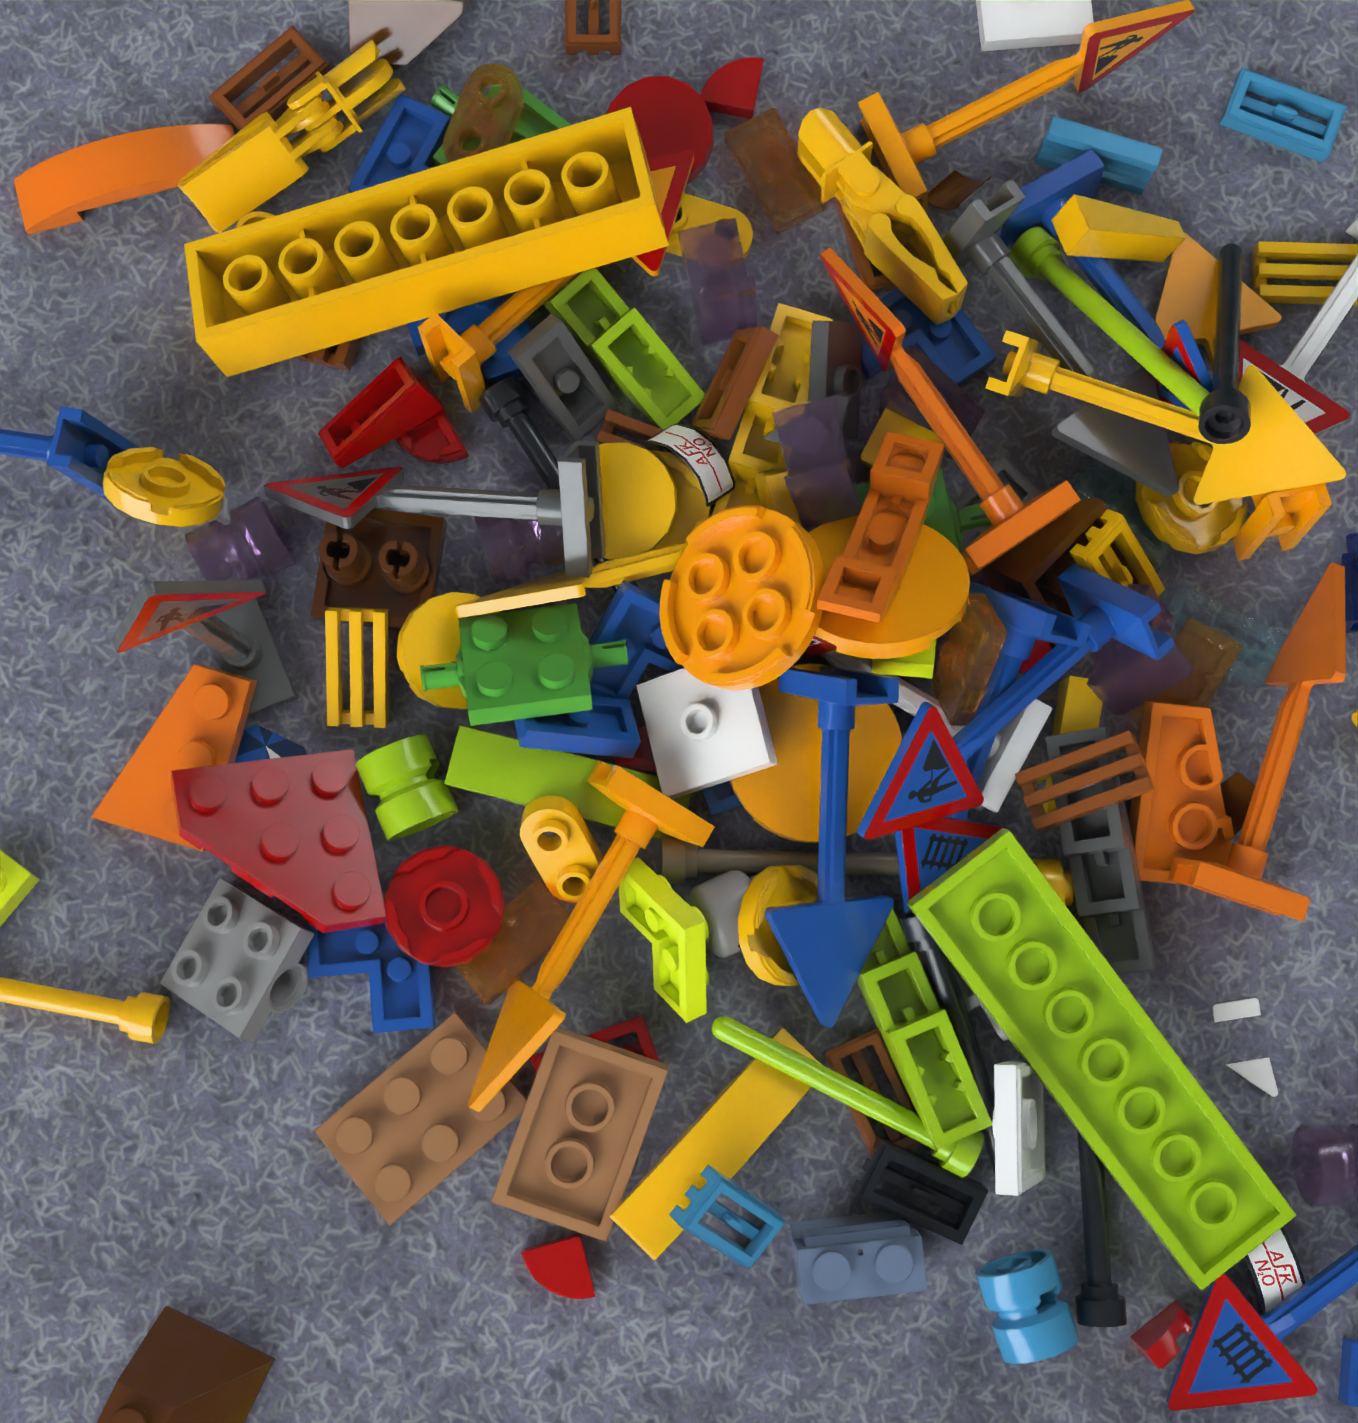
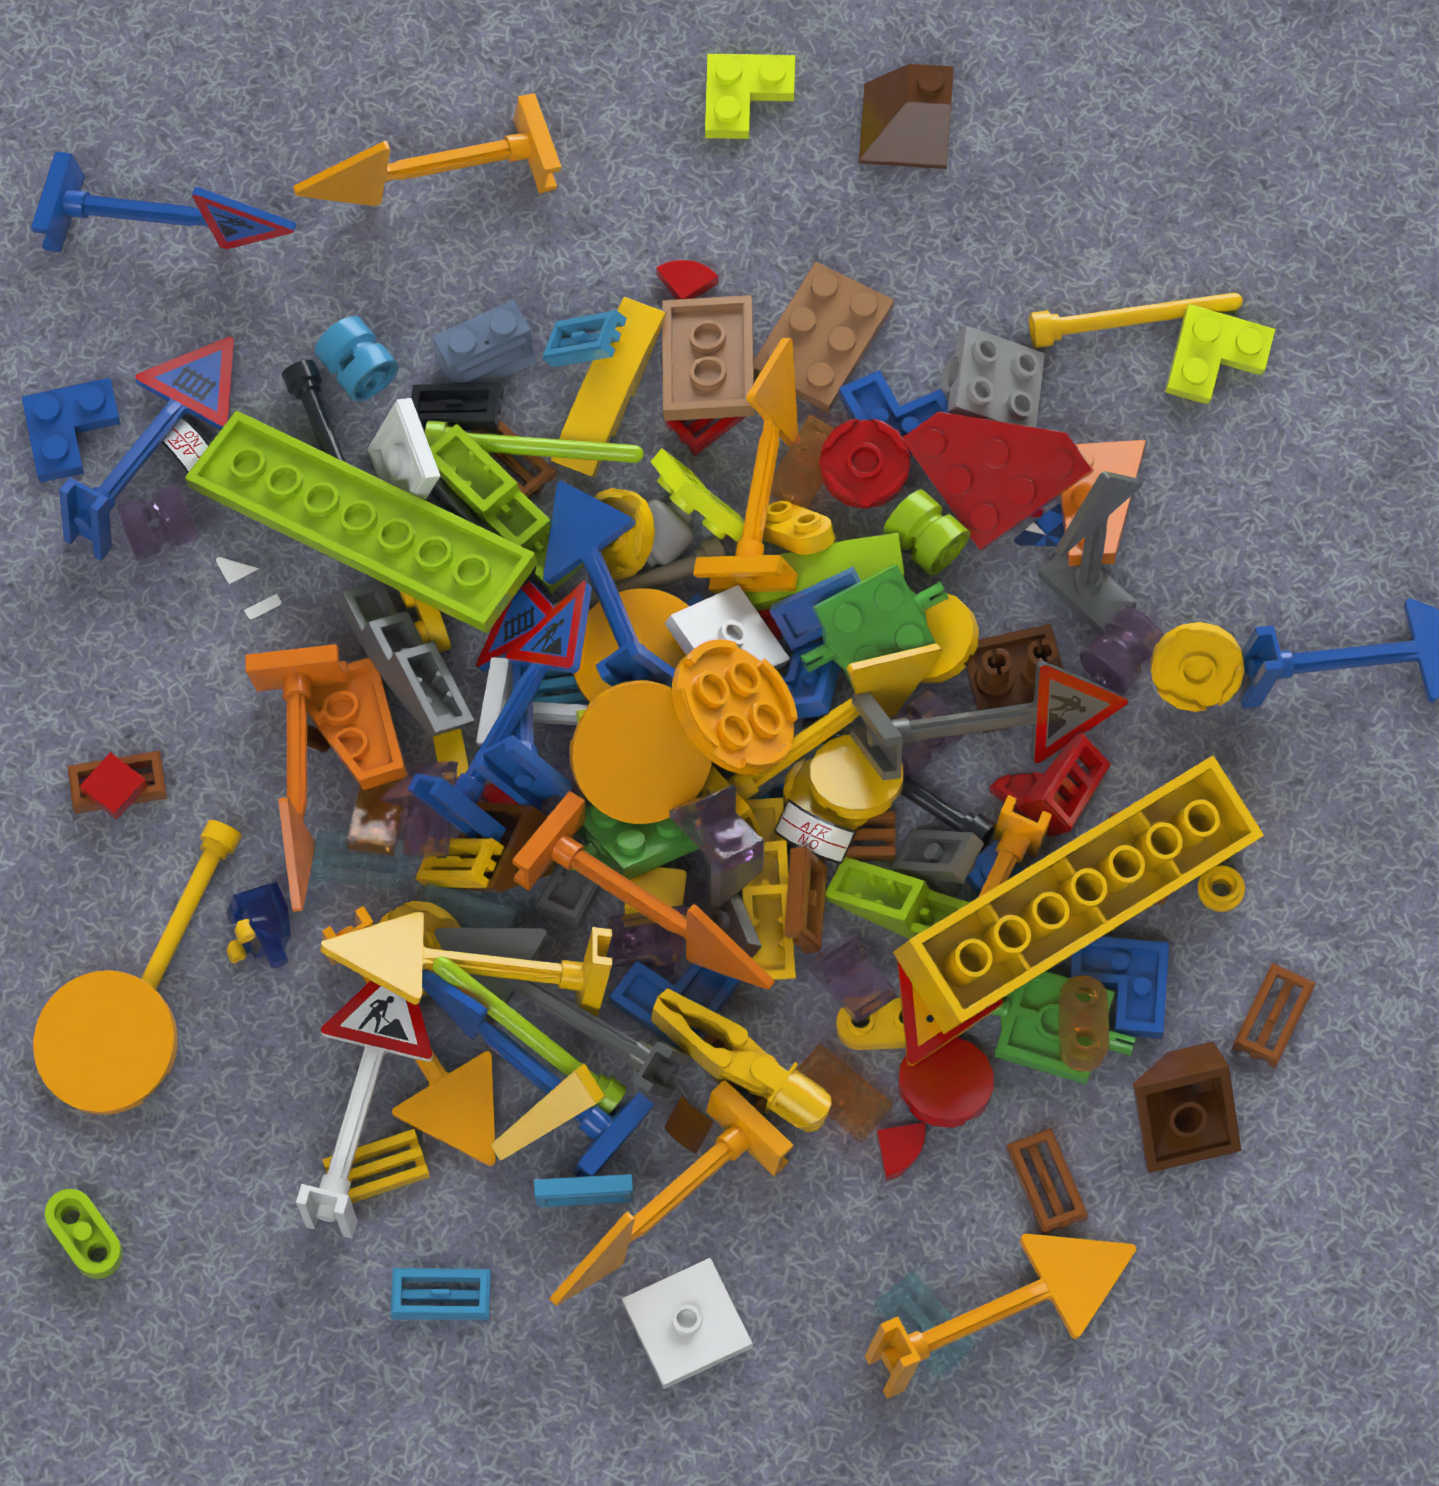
camera: 165 degrees right, 15 degrees down
(113, 172) = (1345, 900): orange slope -> none
(262, 159) = (1237, 945): yellow arm -> none
(334, 667) = (991, 578): yellow tile -> none
(886, 530) = (648, 782): orange slope -> none
(968, 660) = (552, 736): clear orange plate -> none
(1036, 798) = (463, 671): dark orange tile -> none
(1158, 1335) = (258, 373): red tile -> none
(1226, 411) = (429, 950): black piece -> none

